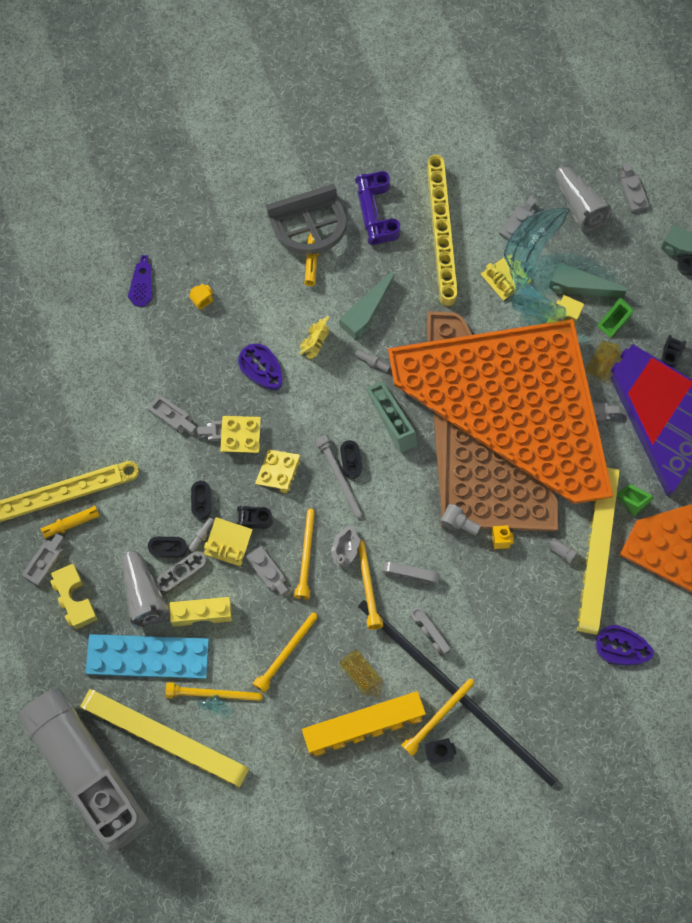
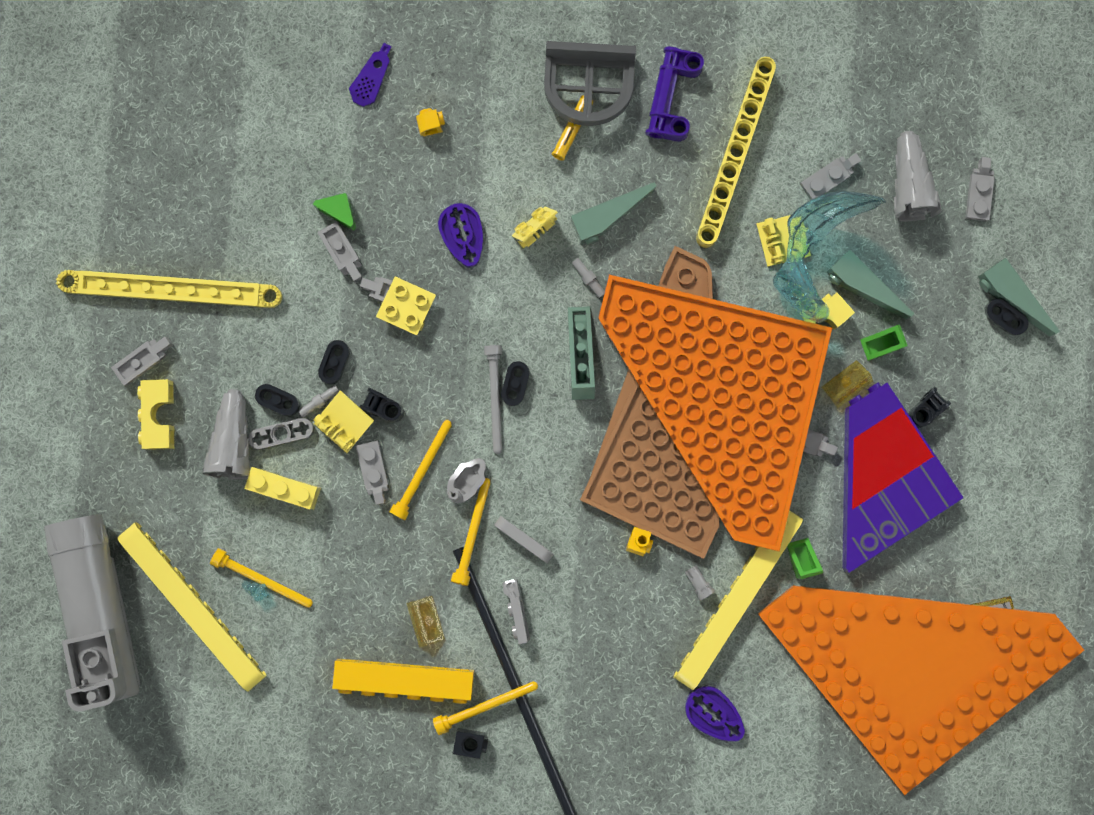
camera: 25 degrees right, 15 degrees up
(69, 522) = (176, 328): yellow pin -> none
(147, 656) = (209, 511): medium azure plate -> none
(155, 385) = (338, 208): none -> bright green slope
(264, 681) = (318, 590): yellow piece -> none
(278, 470) = (431, 362): light yellow hinge -> none
(455, 518) = (597, 502): light grey pin -> none

